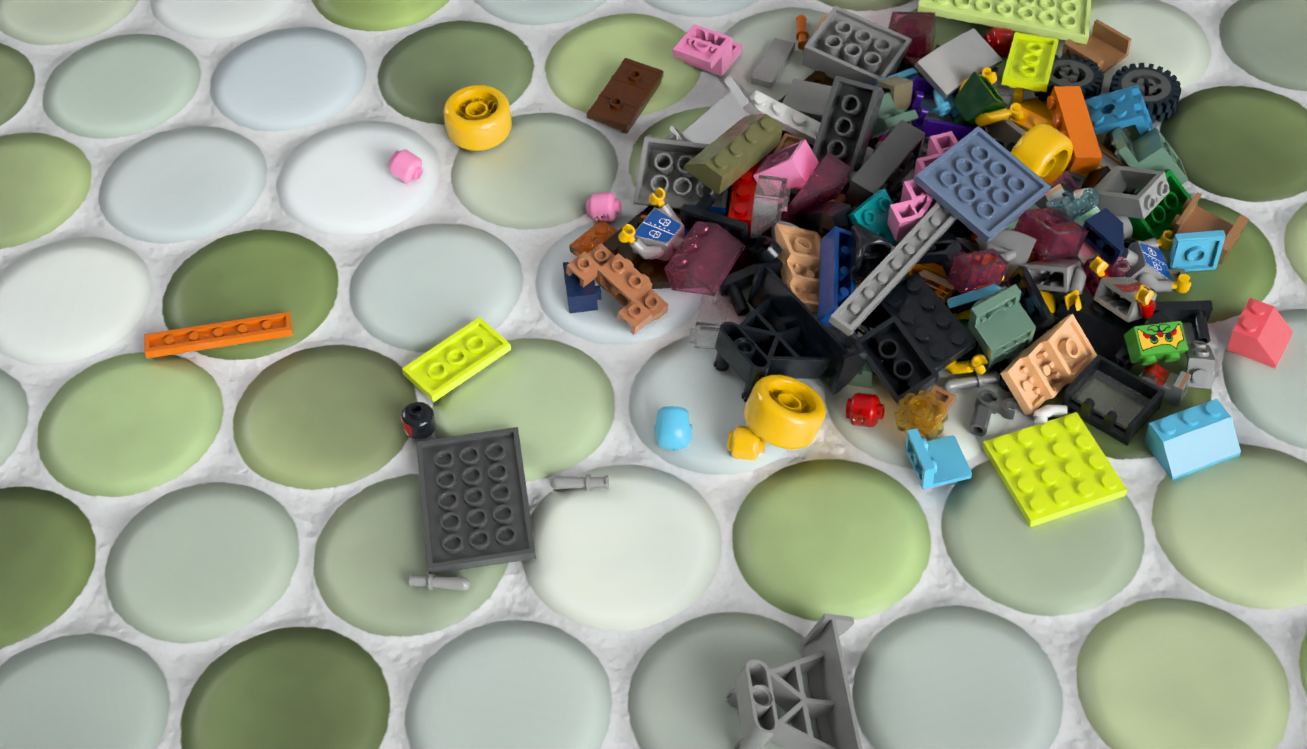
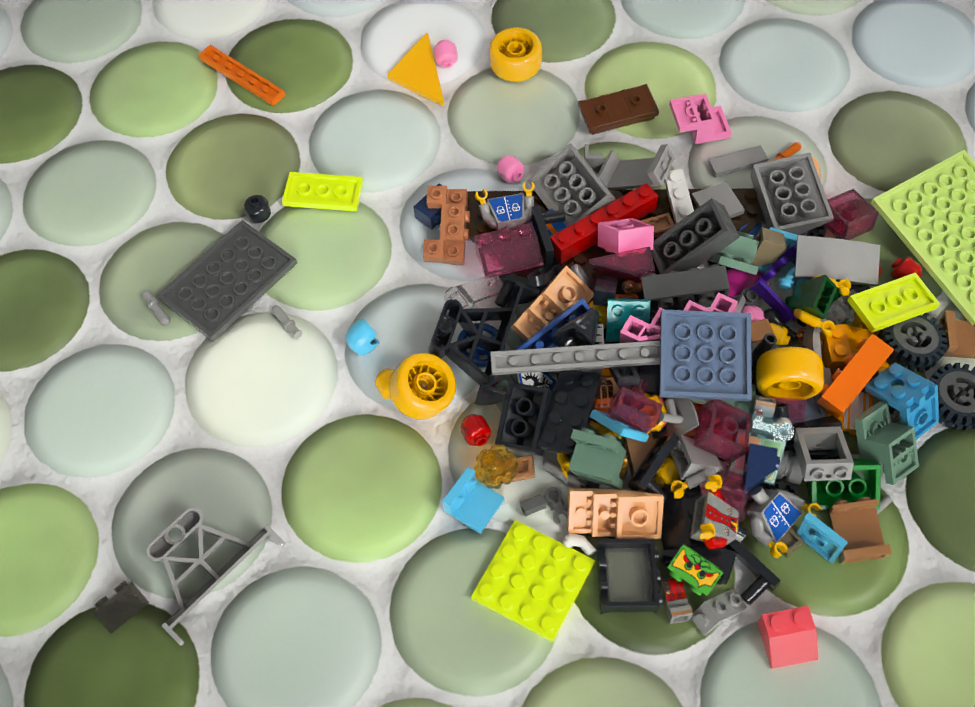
camera: 50 degrees right, 10 degrees up
(398, 202) = (418, 71): none -> yellow tile
(592, 238) = (478, 183): clear orange plate -> none
(735, 151) = (603, 198): olive slope -> none
(769, 202) = (581, 246): clear slope -> none
(1193, 439) = (638, 655): slope -> none

